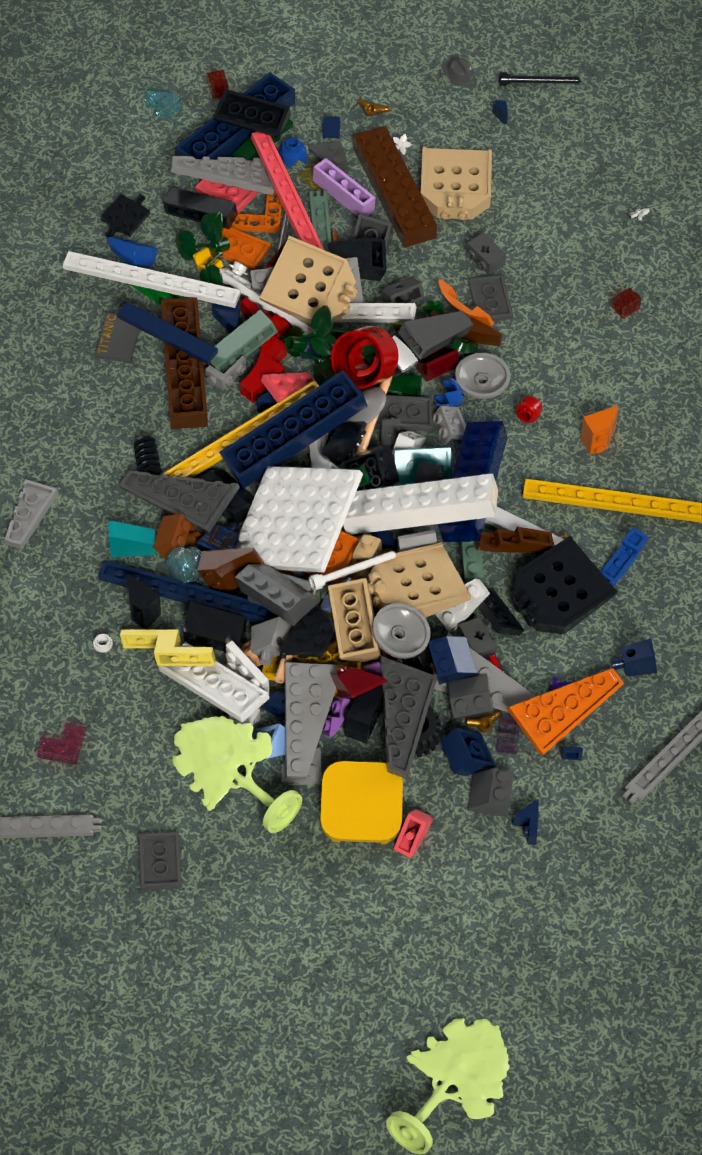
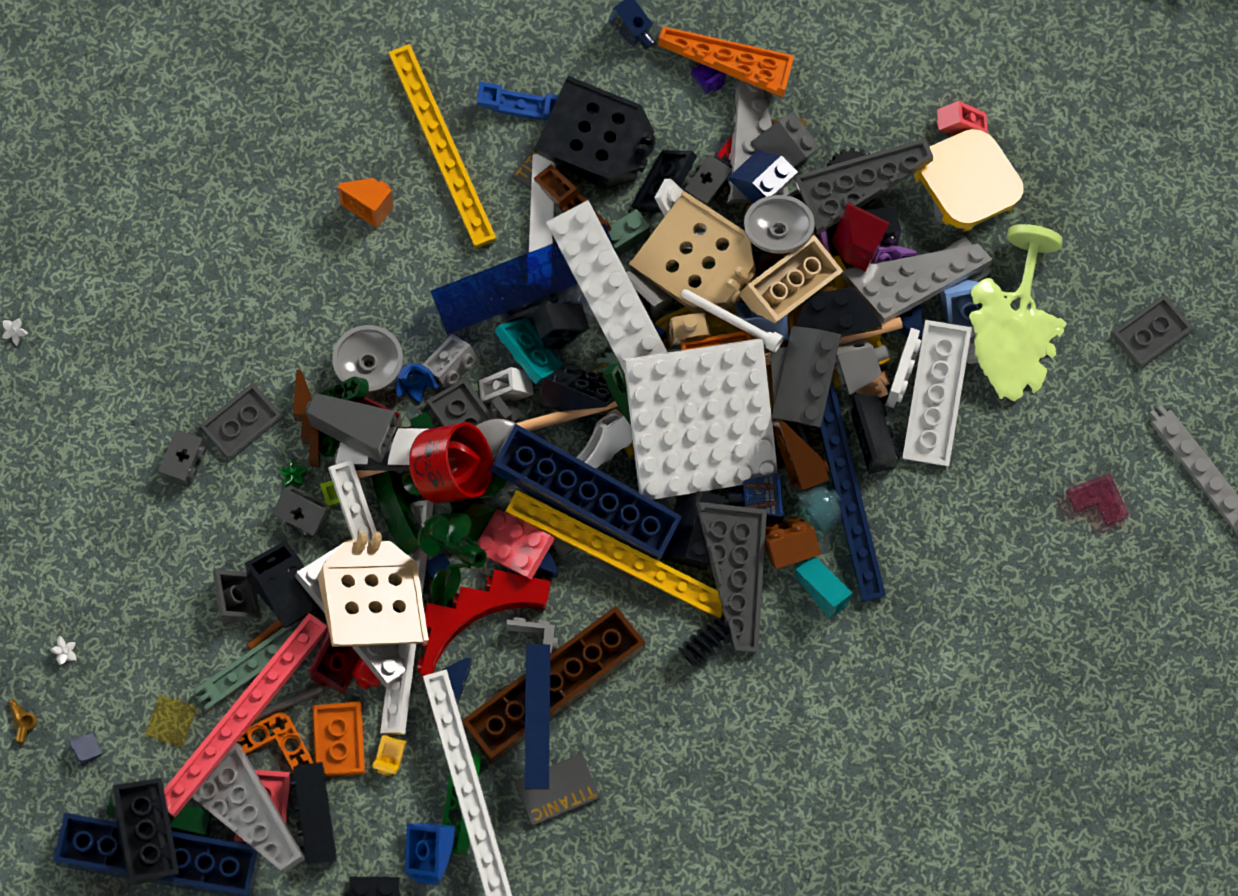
camera: 125 degrees left, 15 degrees up
(32, 507) = (846, 725): light grey wing -> none
(100, 639) = (960, 535): white plate -> none
(143, 602) = (895, 522): black slope -> none
(168, 647) = (927, 462): light yellow bracket -> none
(212, 227) = (367, 749): dark green plant -> none
(238, 268) = (374, 716): white plate -> none
(243, 341) = (487, 633): sand green brick -> none
(292, 150) = (165, 768): blue piece -> none
(332, 151) = (129, 723): dark grey wing -> none
(343, 188) = (184, 666): lavender brick -> none
(343, 441) = (561, 432): black slope -> none
(394, 186) = (140, 616): reddish brown brick -> none
(456, 182) = (117, 525): tan hinge -> none
(467, 752) = (842, 121): dark blue slope -> none
(477, 313) = (286, 409): orange slope -> none
(491, 792) = (870, 76): dark grey slope -> none
(508, 736) = (795, 98): clear purple slope -> none
(529, 409) = (378, 292): red head -> none
(529, 818) = (873, 28): dark blue slope -> none
(572, 753) = (772, 32): dark blue slope -> none
(626, 303) = (161, 272): clear red brick -> none

